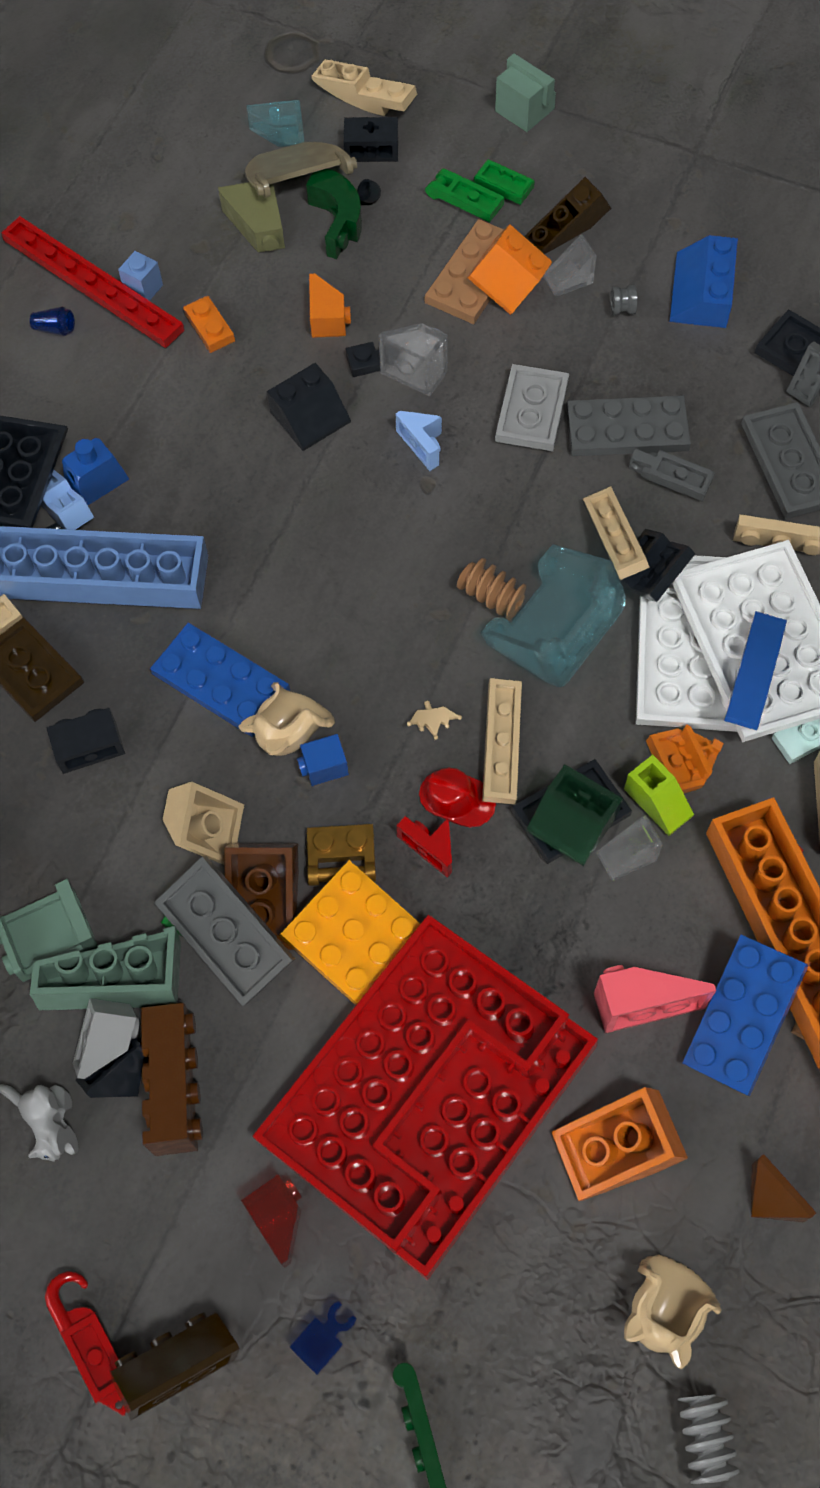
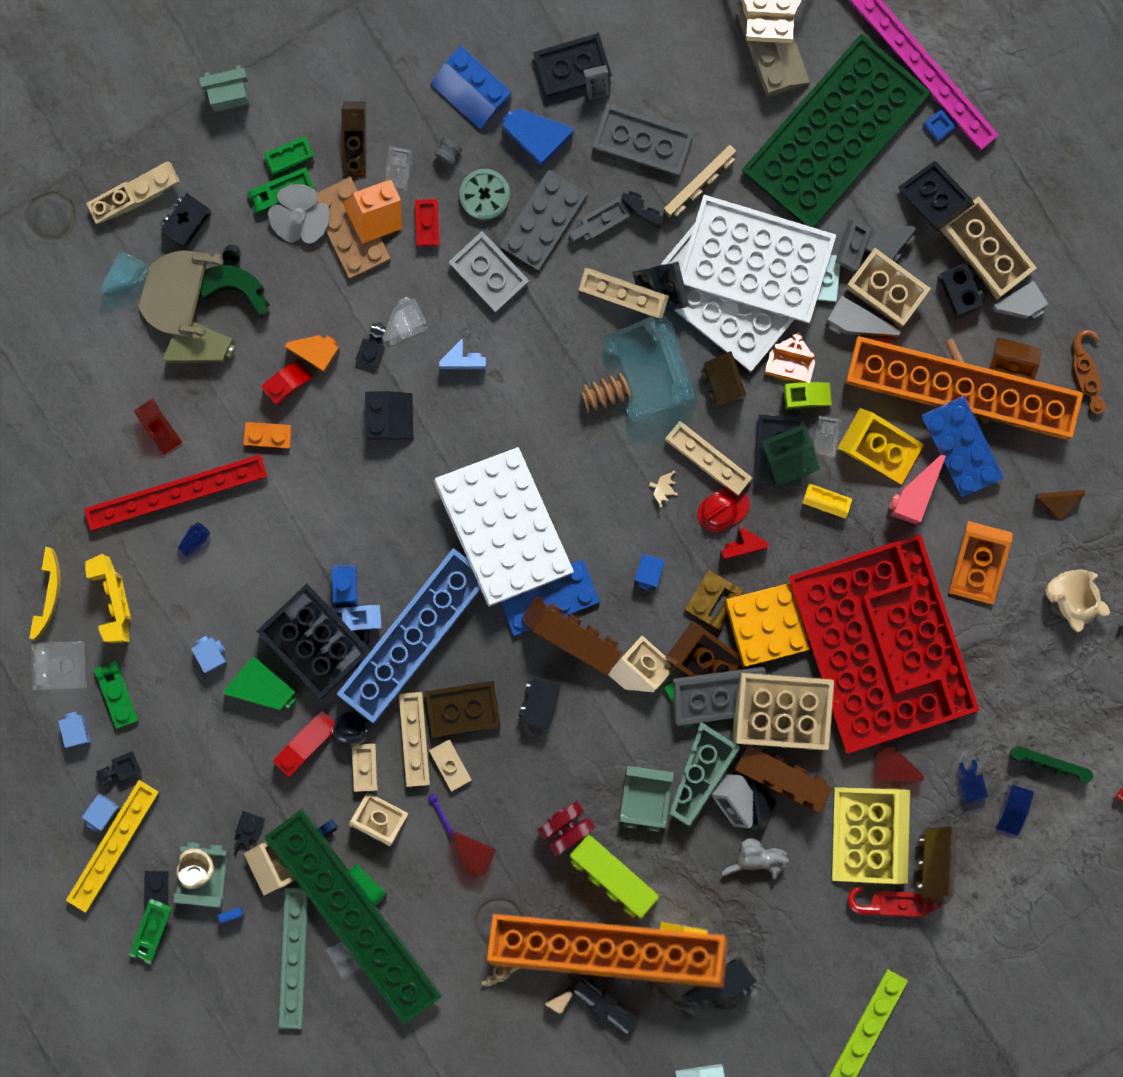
camera: 55 degrees left, 20 degrees up
(141, 275) = (200, 458): medium blue brick -> none
(148, 226) = (158, 426): none -> clear red slope
(164, 1249) = (871, 835): none -> light yellow slope
(185, 718) = (571, 635): none -> reddish brown wedge
(253, 1016) = (783, 711): none -> tan slope
(263, 576) = (503, 526): none -> white plate
(273, 303) = (286, 382): none -> red slope
(286, 721) = (612, 576): tan hair -> none
(323, 1427) = (1014, 809): none -> clear blue slope
(444, 219) = (299, 222): none -> light grey piece
(536, 326) = (427, 222): none -> red plate
(553, 903) = (827, 501): none -> yellow plate
(603, 373) = (498, 192): none -> sand green wheel
(604, 695) = (723, 380): none -> dark brown slope
(668, 920) = (880, 445): none -> yellow slope
(711, 364) = (536, 134): none -> blue slope
(718, 508) = (635, 205): none -> black slope
(755, 671) = (778, 286): blue slope -> none
(788, 782) = (855, 320): none -> light grey slope

